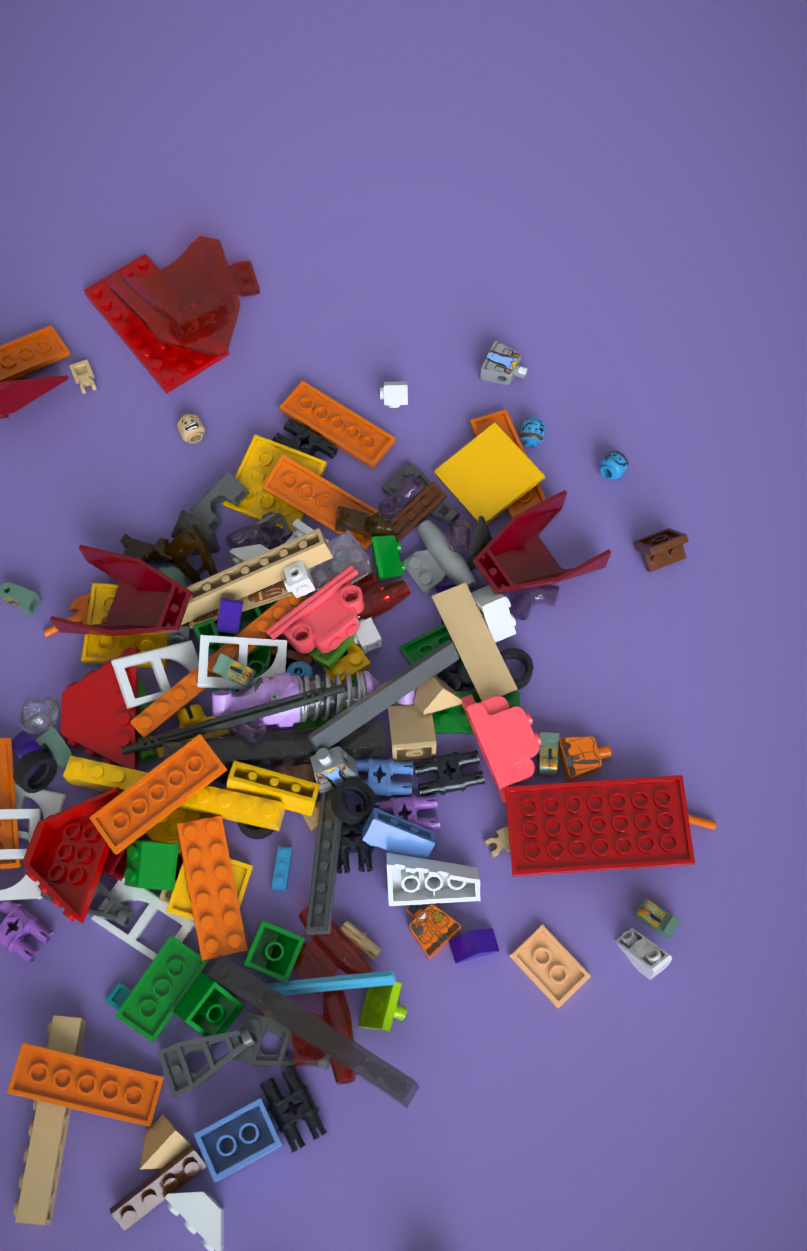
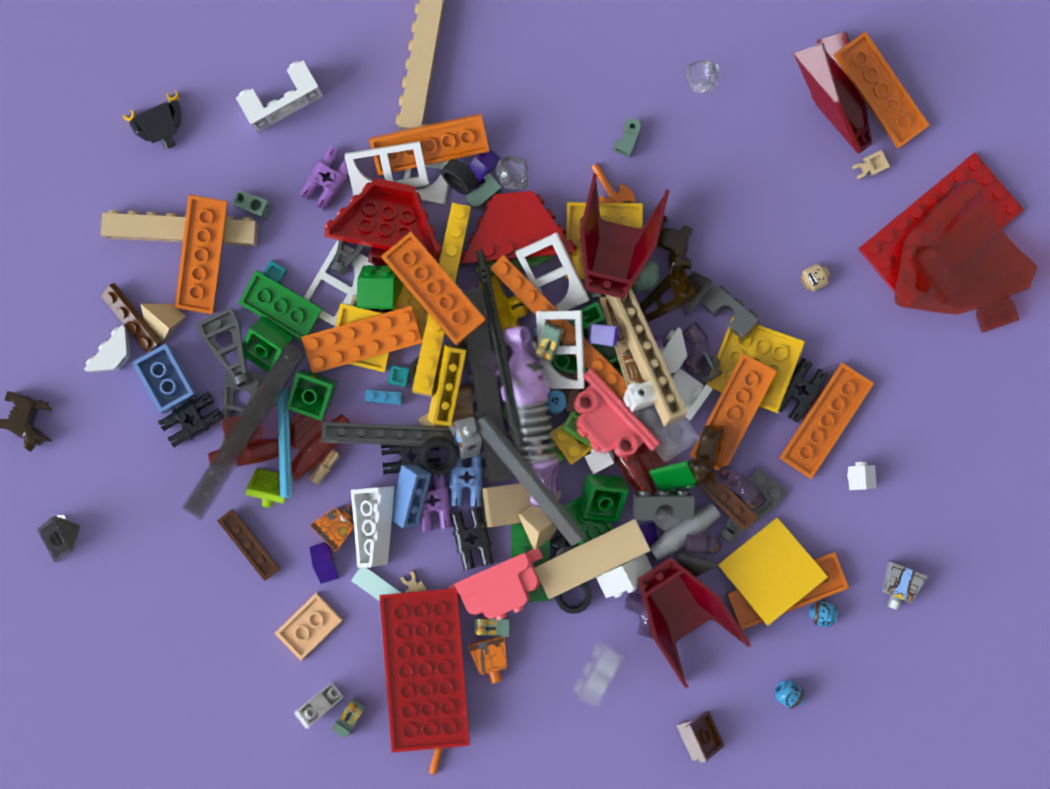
camera: 85 degrees right, 20 degrees up
(33, 1021) = (252, 204): none -> sand green leg
(259, 851) = (398, 376): none -> teal tile
(407, 631) = (603, 497): none -> green slope
(417, 585) = (646, 504): none -> dark grey arch
(451, 1037) = (248, 544): none -> reddish brown plate
(499, 887) = (373, 583): none -> light aqua tile
(598, 641) = (598, 674): none -> clear brick

